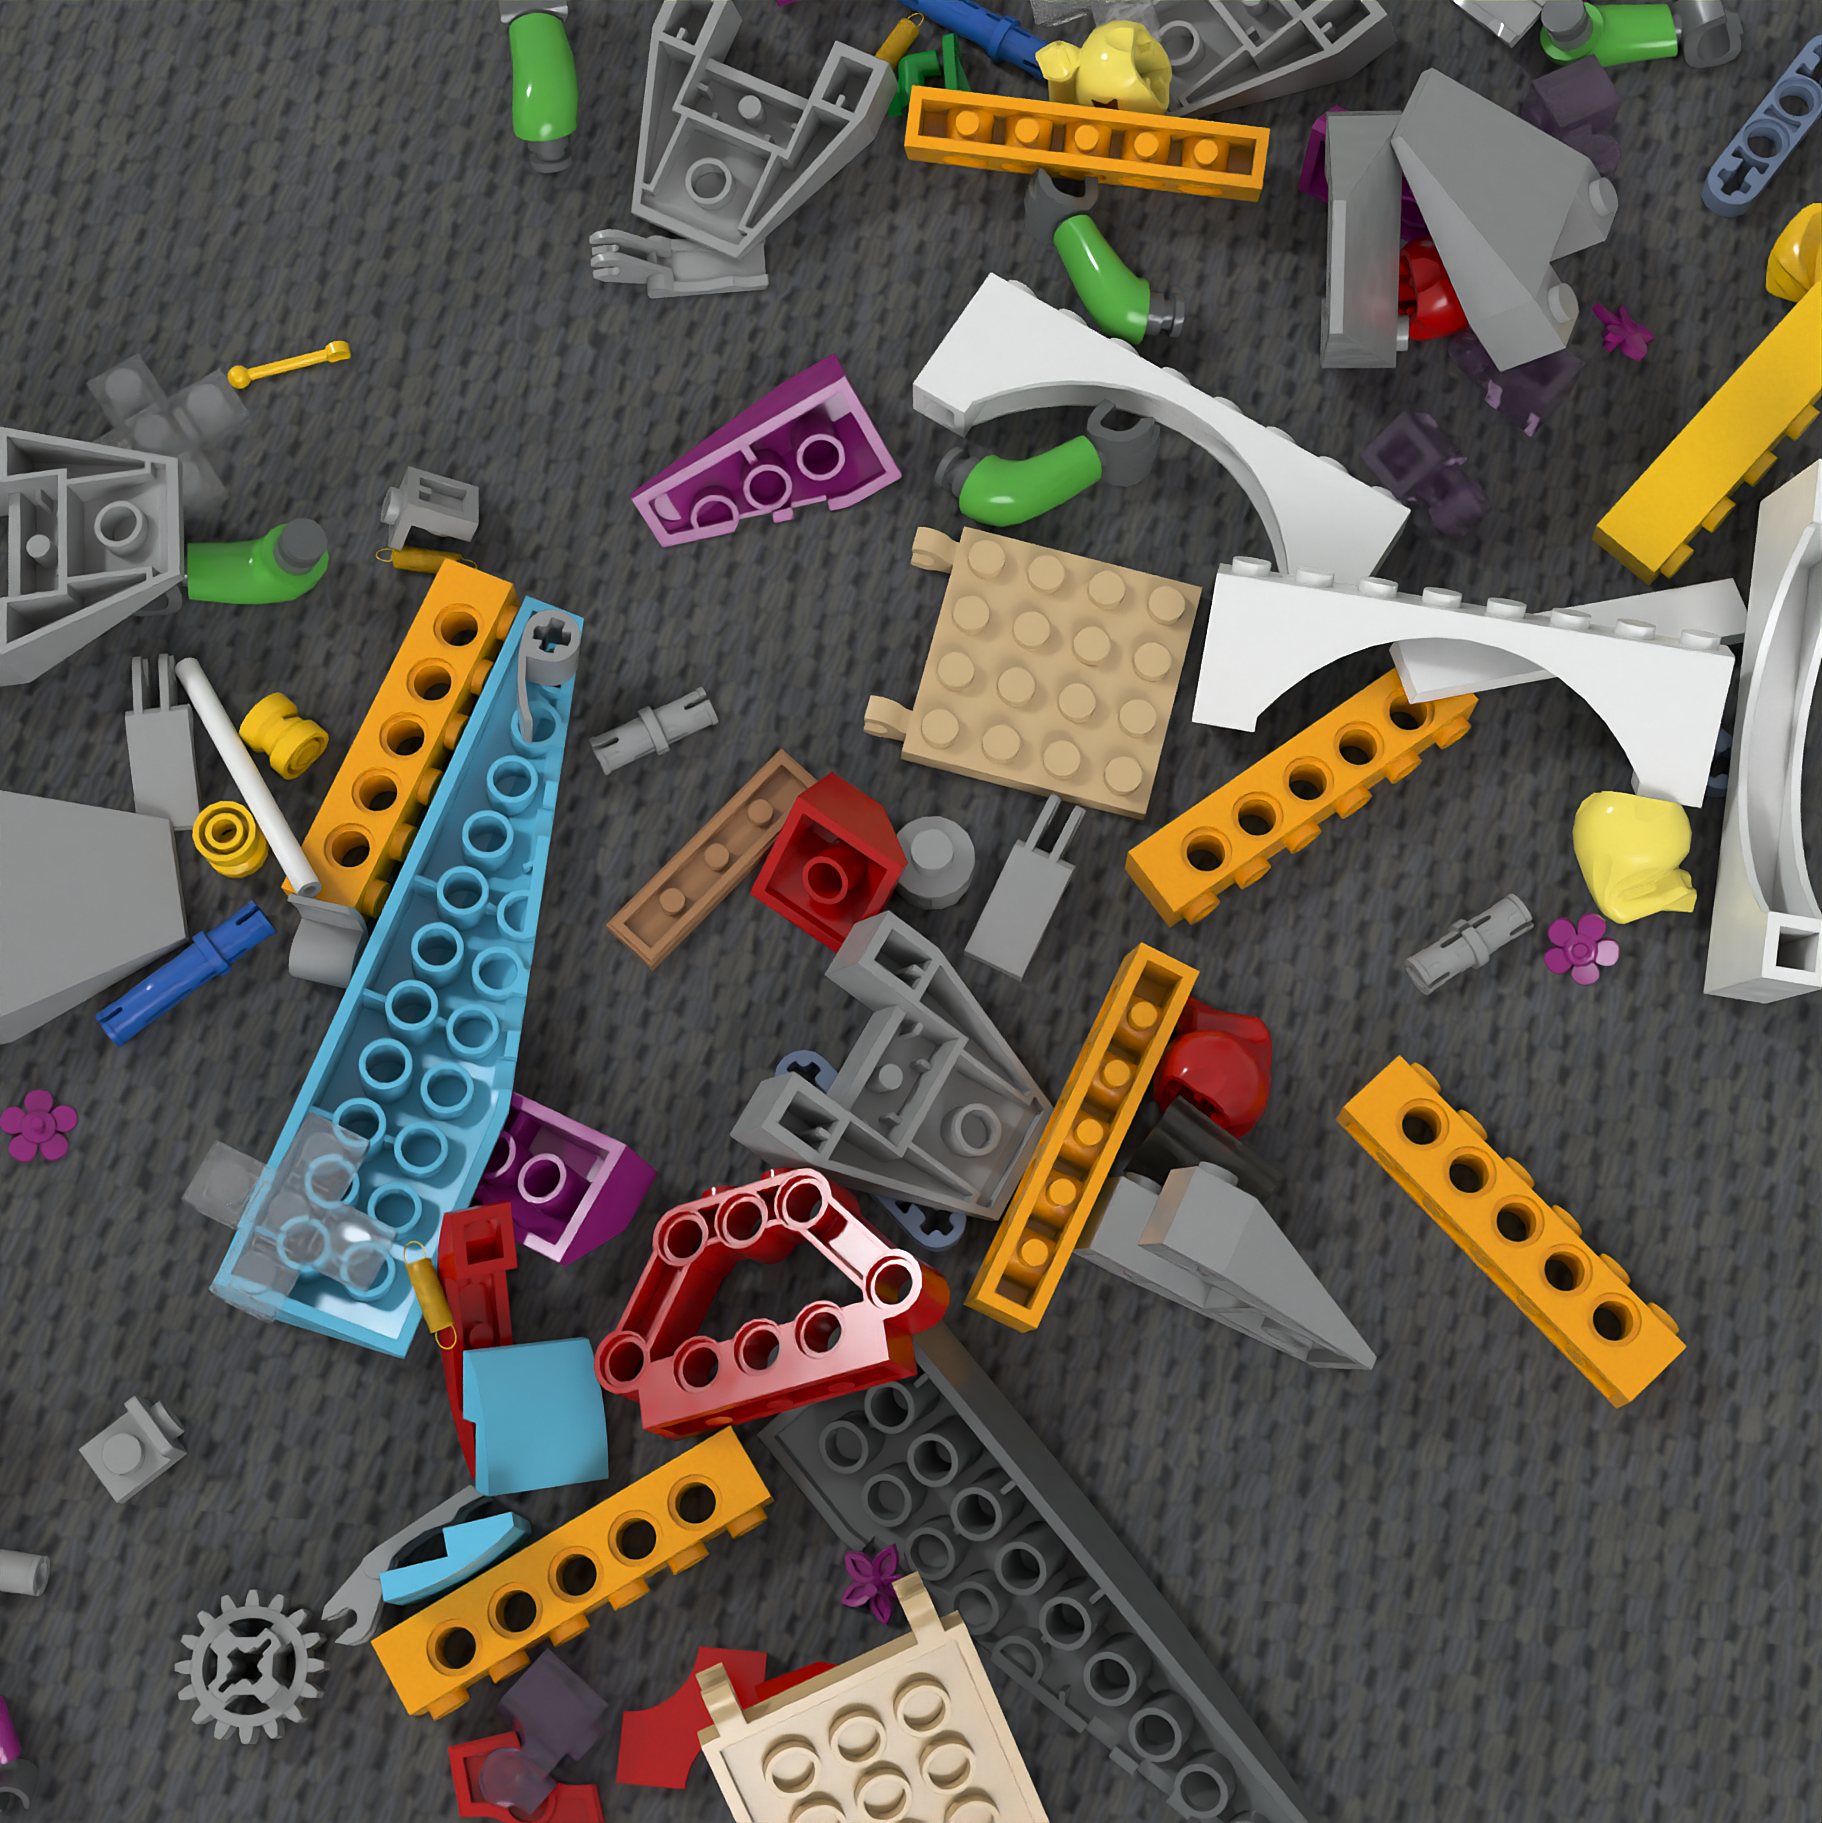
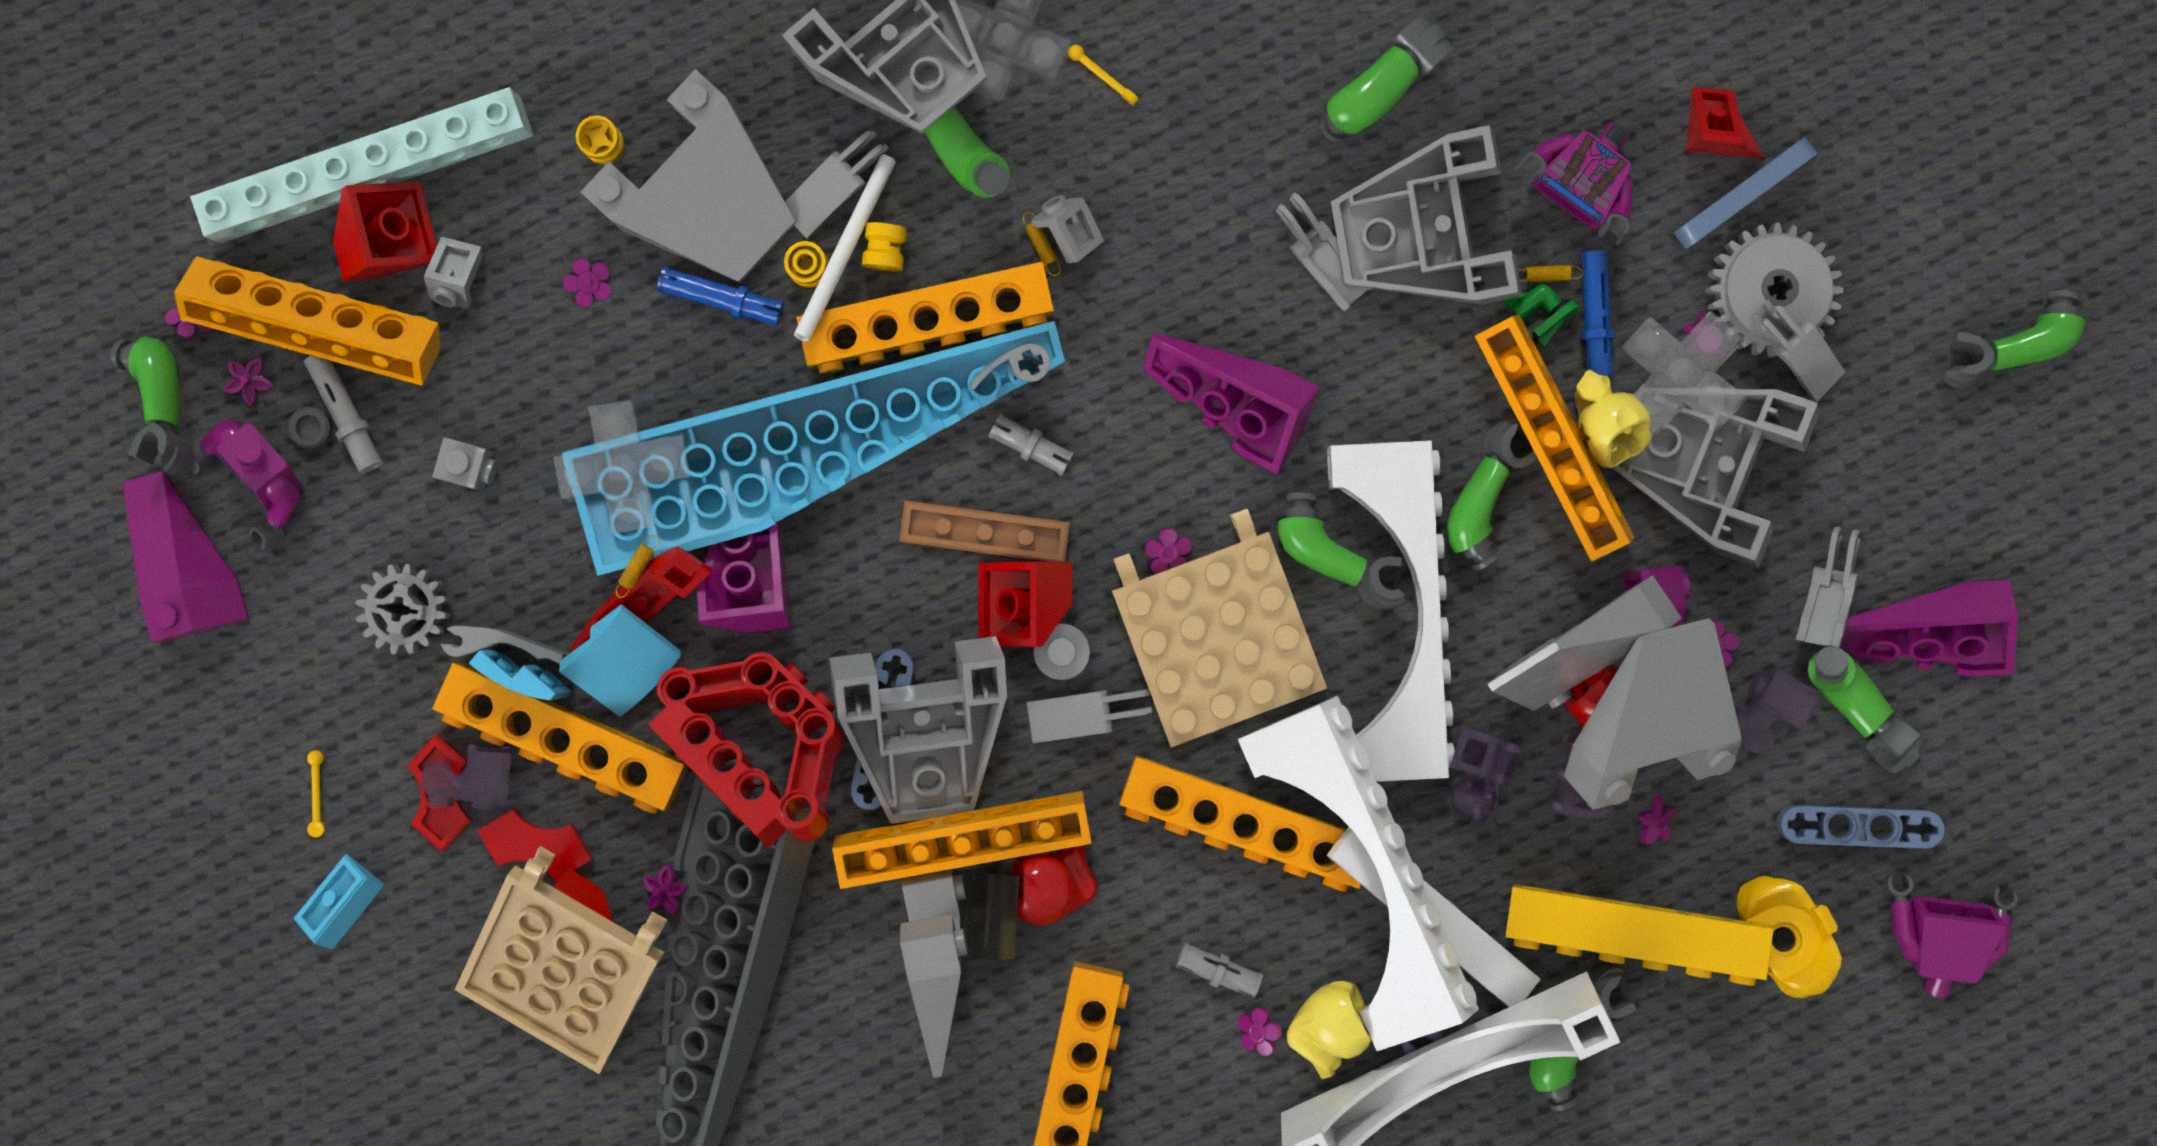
camera: 55 degrees right, 15 degrees up
(327, 942) = (784, 364): light grey panel -> none
(899, 659) = (1169, 551): none -> magenta plant

